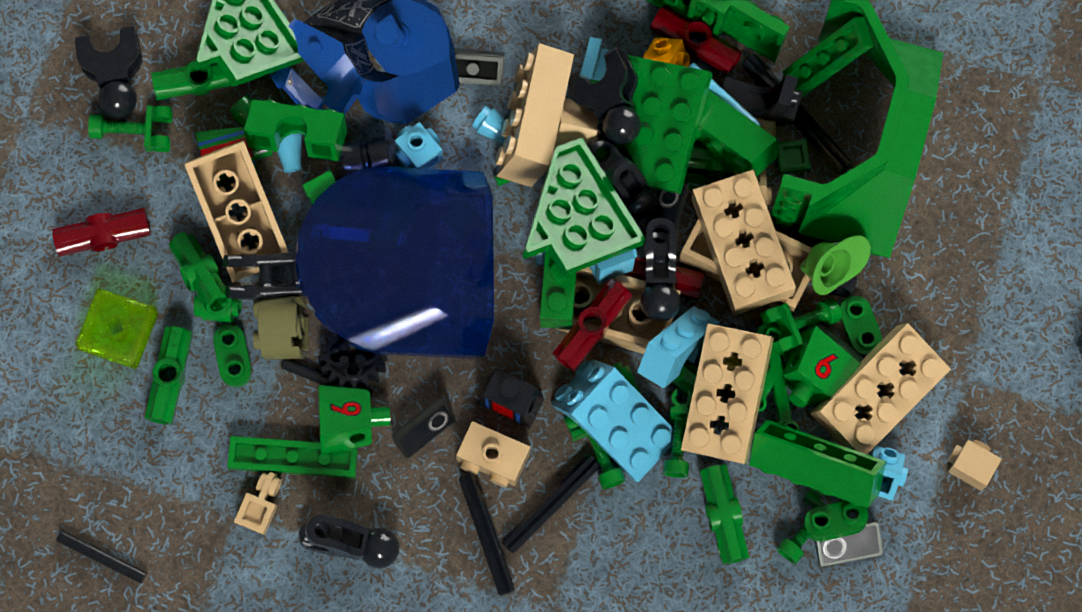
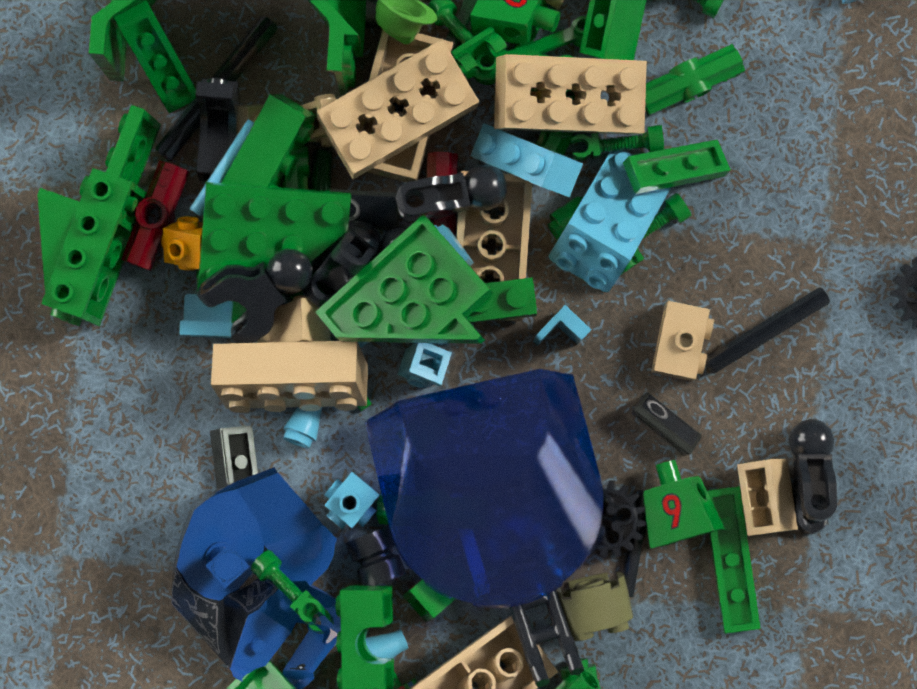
camera: 105 degrees left, 10 degrees up
(232, 355) = (631, 653): green plate -> none
(255, 511) = (799, 585): tan plate -> none
(339, 495) = (767, 496): none -> tan brick
(379, 69) = (303, 603): none -> green bar
(511, 398) = (615, 337): black torso -> none
(516, 229) = (422, 369): none -> medium azure brick
(530, 355) = (568, 323): none -> medium azure panel
(550, 503) = (718, 268): black axle -> none
(580, 340) = (503, 246): dark red piece -> none
(647, 481) = (676, 166): none -> green plate
(793, 156) = (266, 81): green tile -> none

